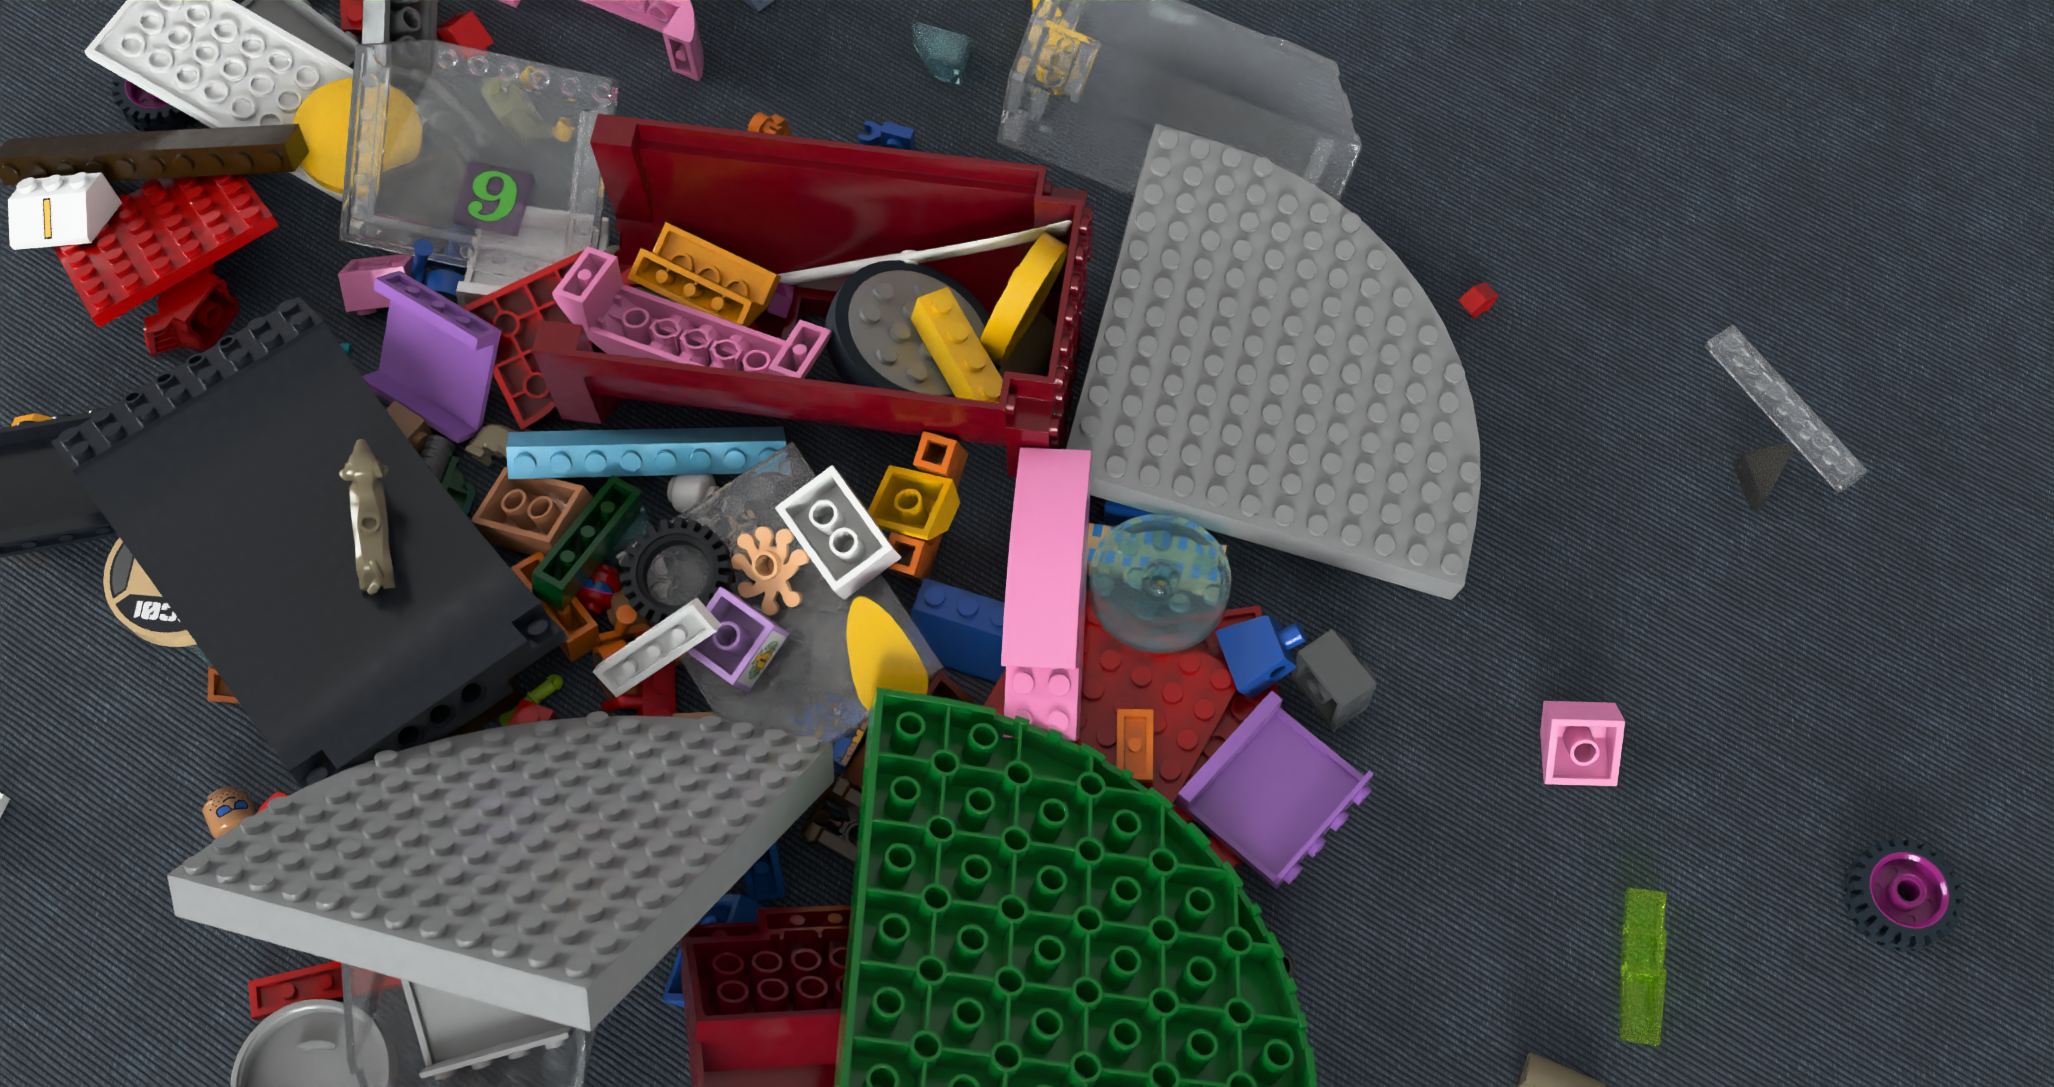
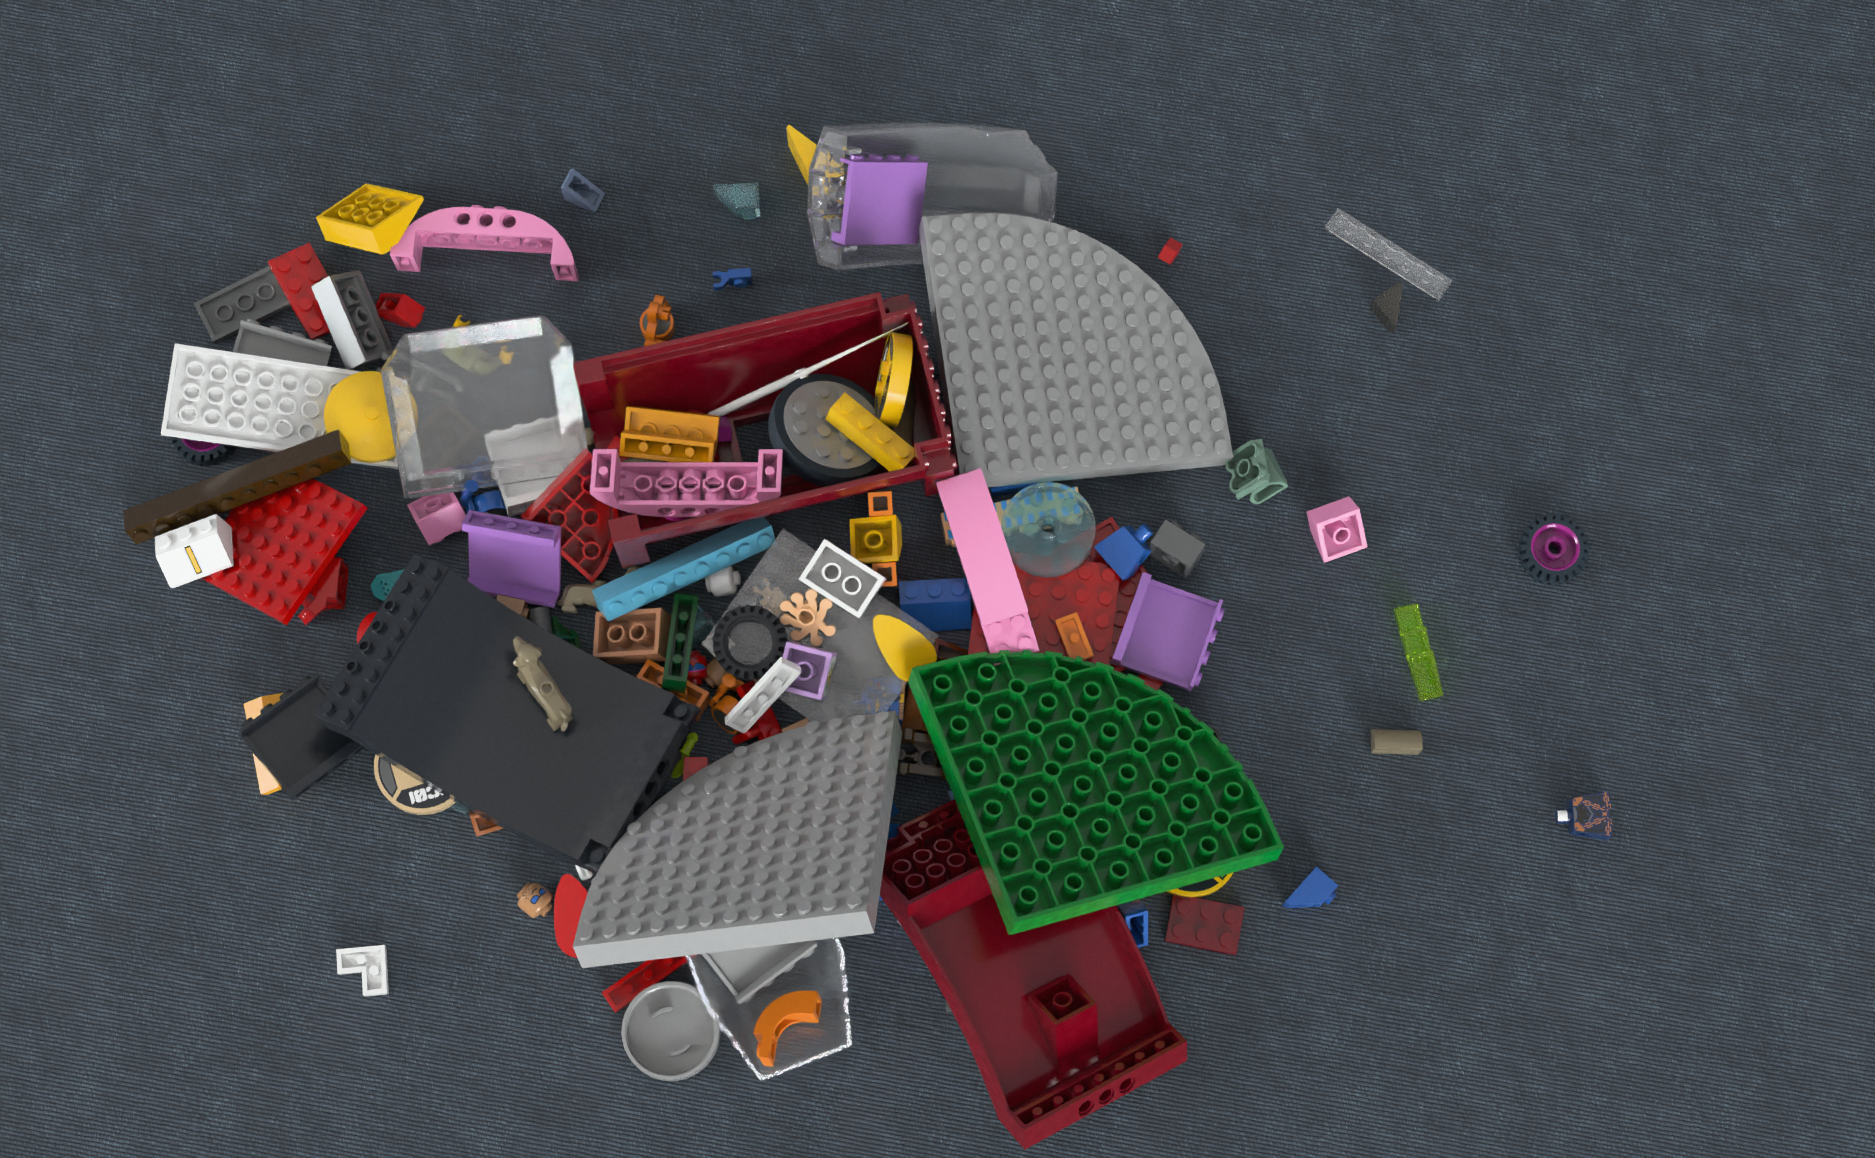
camera: 25 degrees left, 10 degrees up
(493, 198) = (497, 431): clear purple tile -> none
(1111, 88) = (882, 200): none -> medium lavender panel
(1488, 619) = (1255, 472): none -> sand green piece

